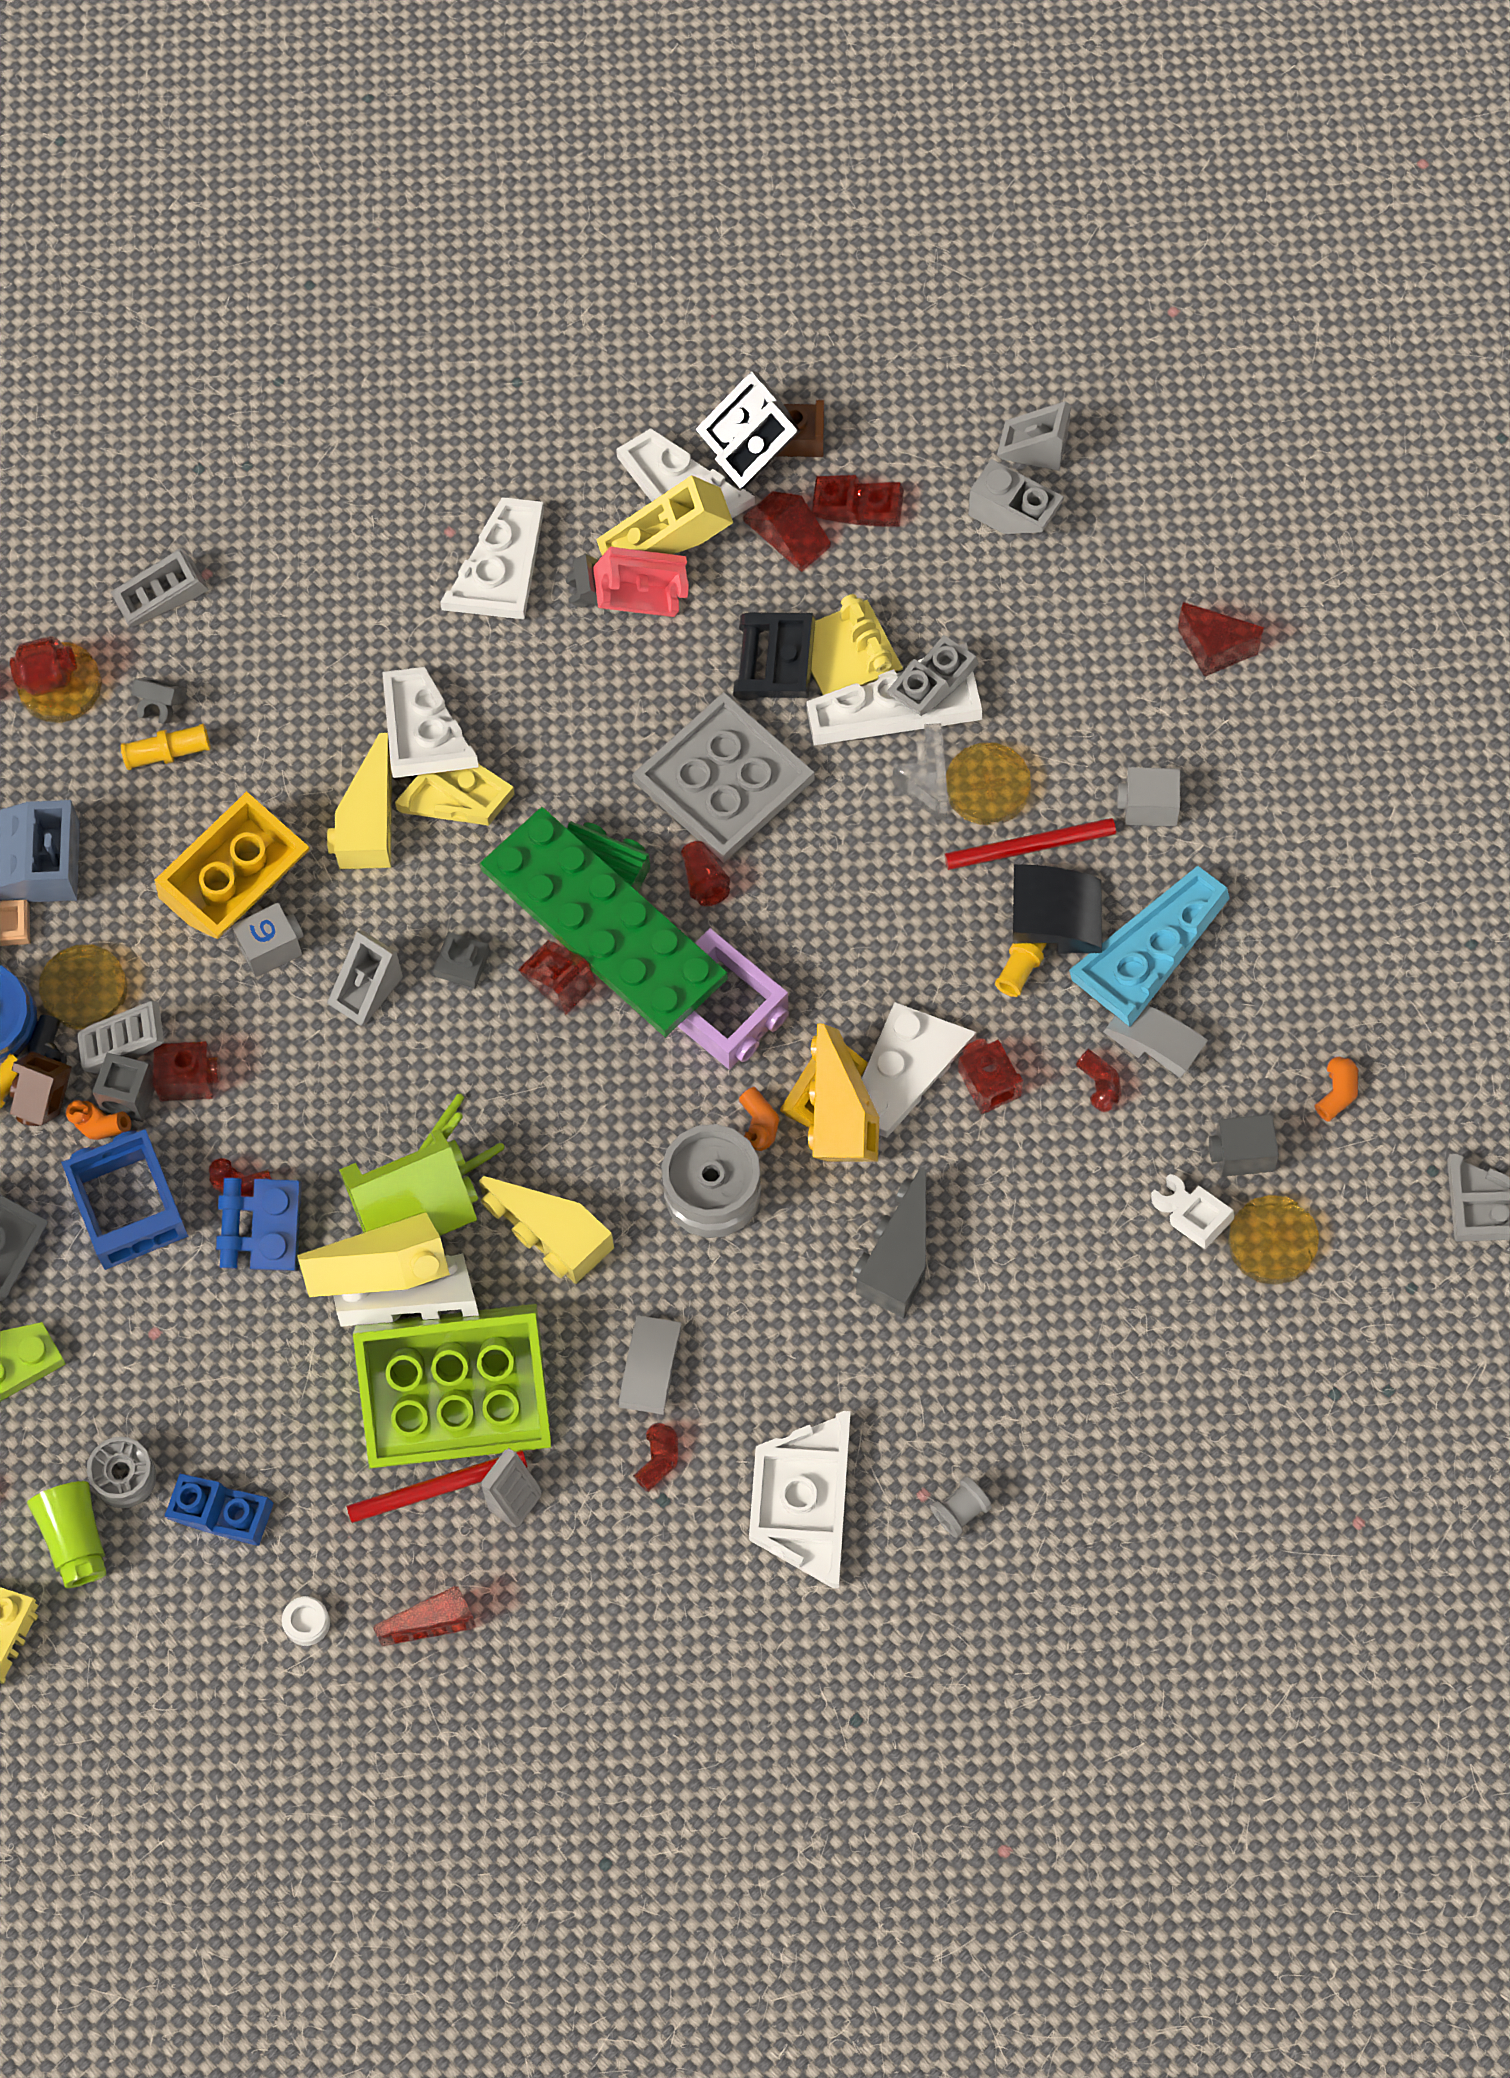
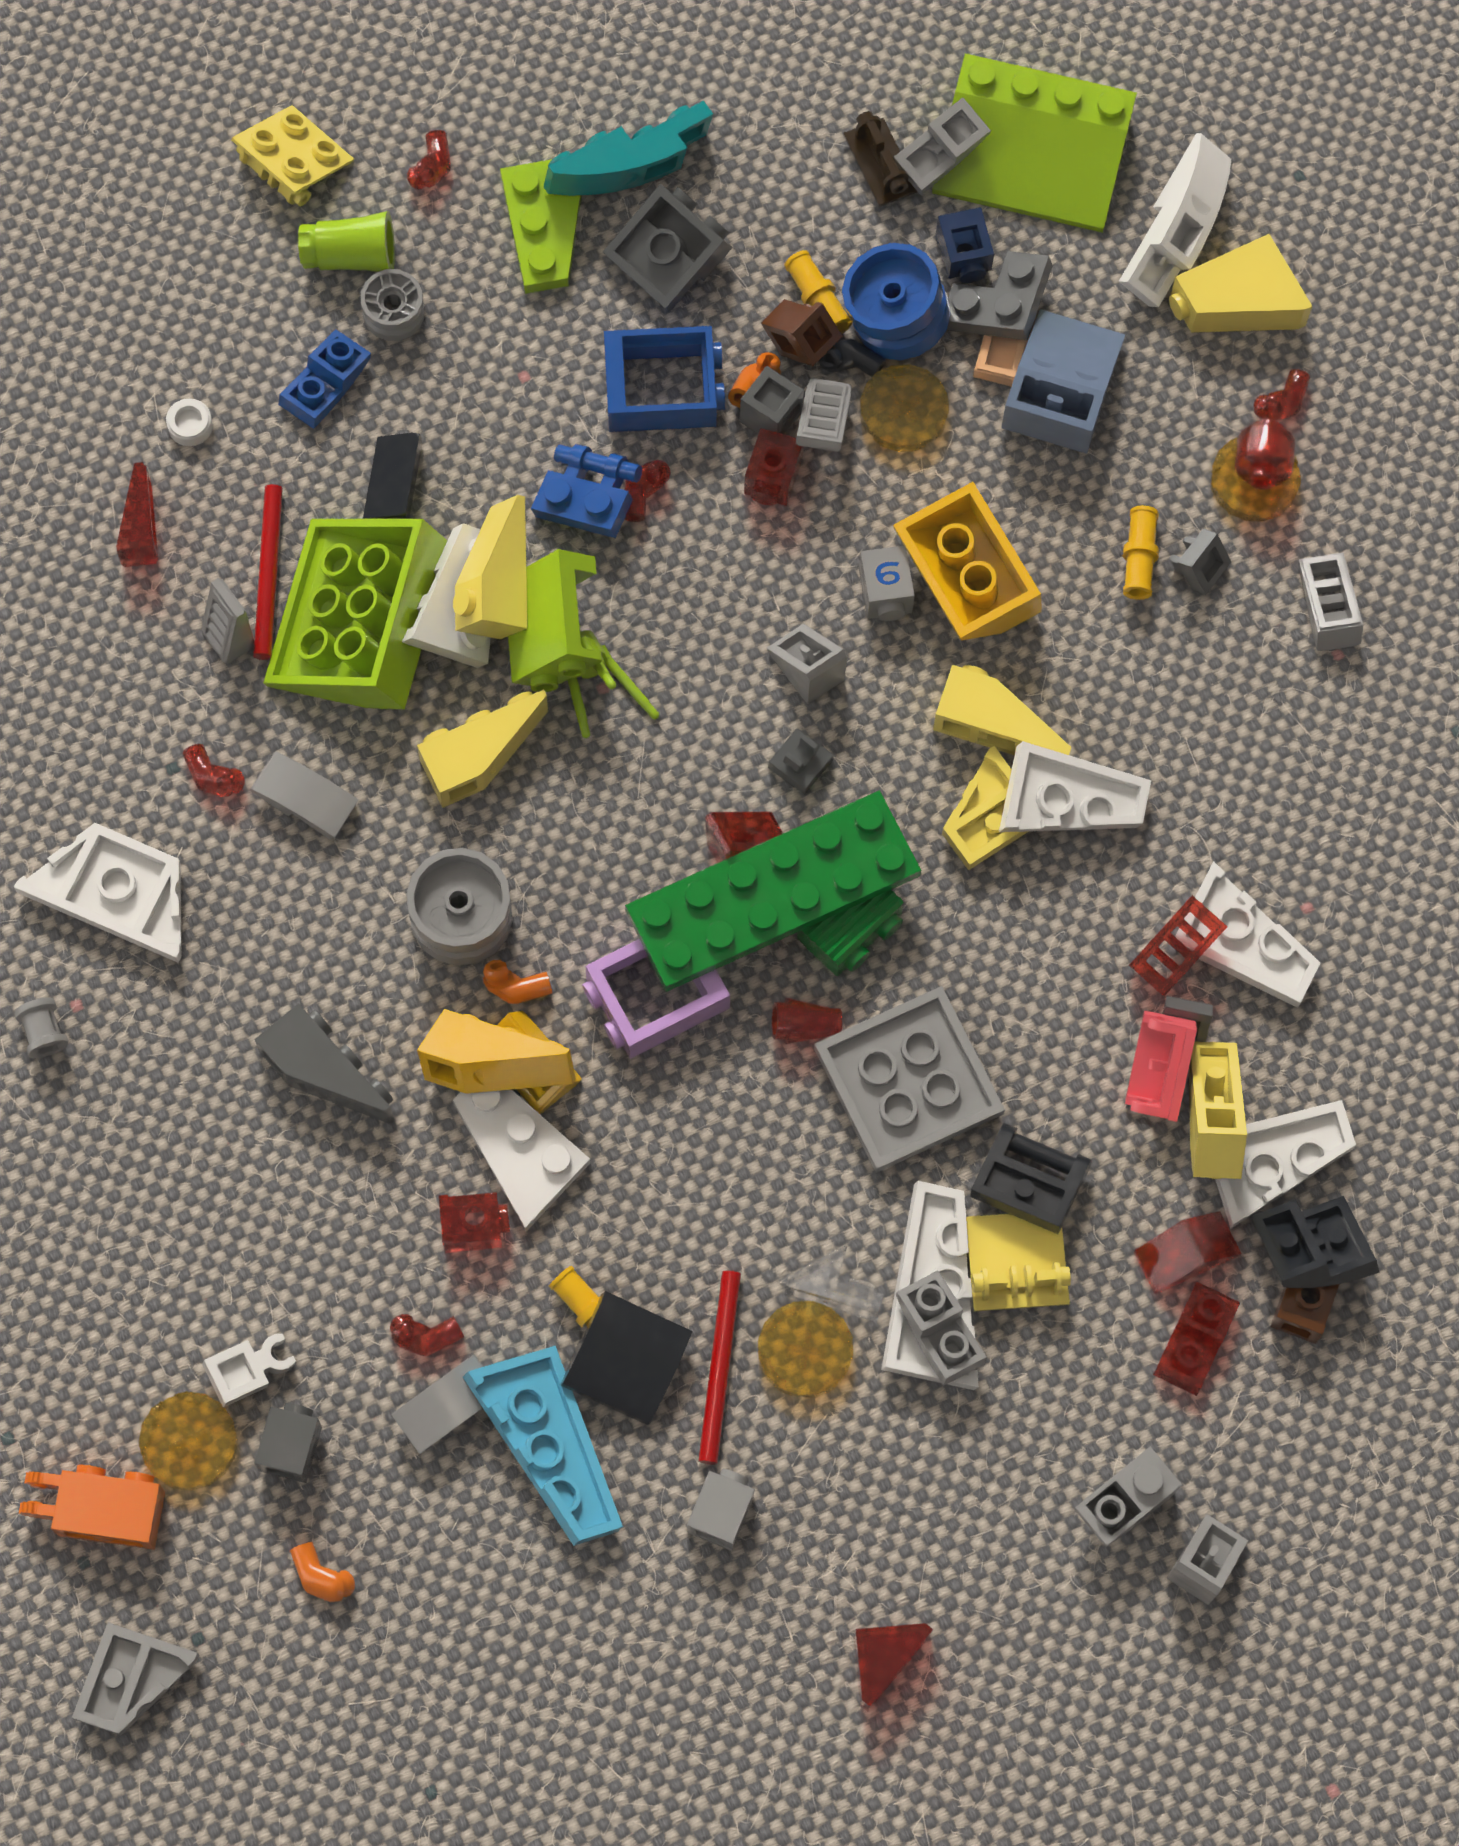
camera: 105 degrees right, 5 degrees up
(304, 1405) = (393, 476): none -> black slope
(535, 621) = (1153, 977): none -> clear red slope
(1363, 1282) = (100, 1506): none -> orange hinge

